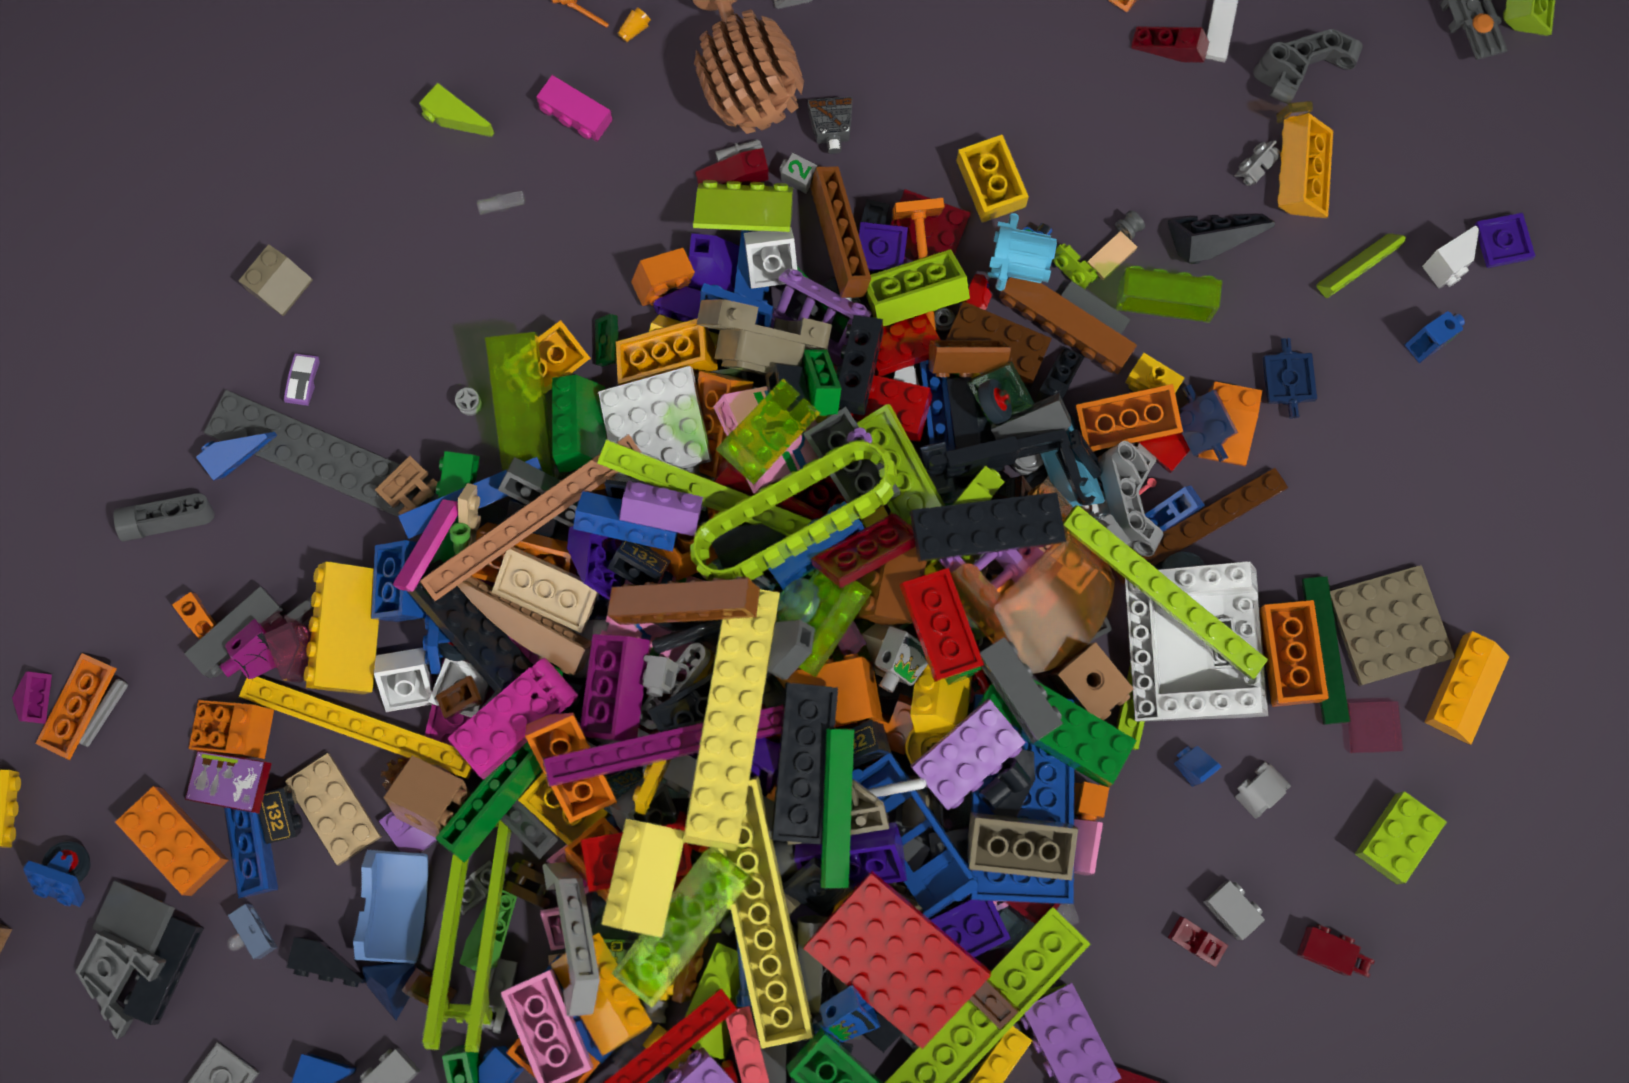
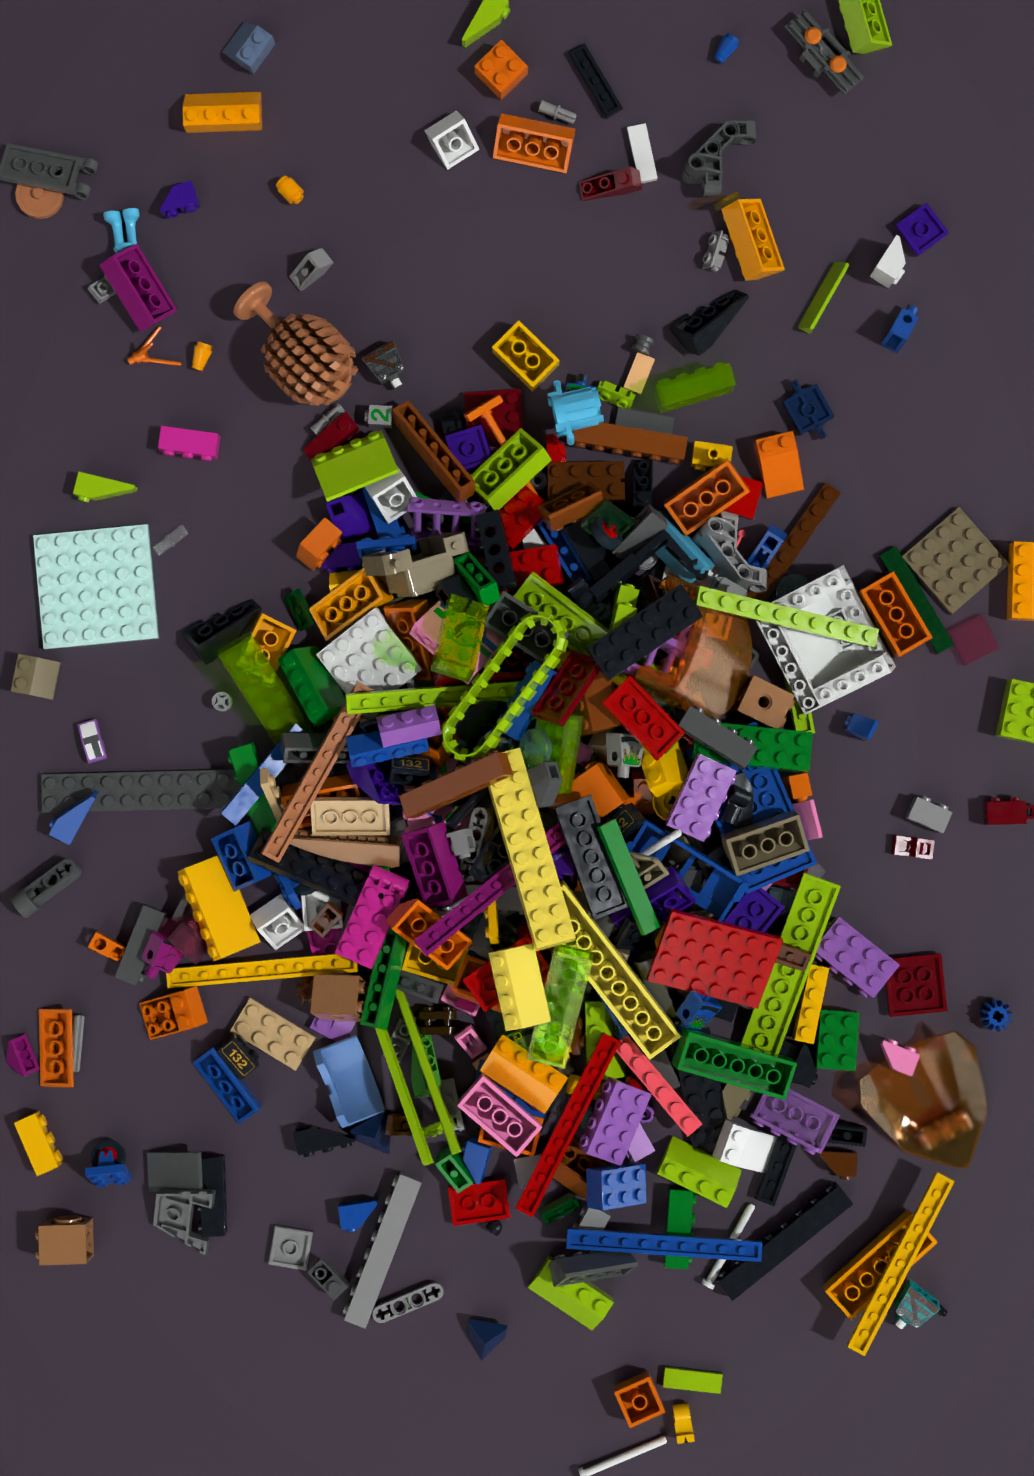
camera: 25 degrees left, 10 degrees up
(172, 841) = (173, 1108): orange brick -> none
(228, 781) = (193, 1050): tile -> none
(250, 932) = (260, 1143): sand blue piece -> none
(393, 216) = (96, 586): none -> light aqua plate
(402, 482) = (206, 783): medium nougat plate -> none
(427, 546) = (253, 825): dark pink tile -> none
(459, 536) = (273, 808): bright green piece -> none
(486, 321) = (214, 634): none -> black wedge
(578, 938) = (490, 1044): light grey slope -> none
(859, 433) = (524, 606): medium lavender plate -> none
(1085, 453) = (686, 539): black tile -> none
(1206, 423) = (762, 474): dark blue plate -> none
(1263, 790) = (914, 721): light grey cylinder -> none

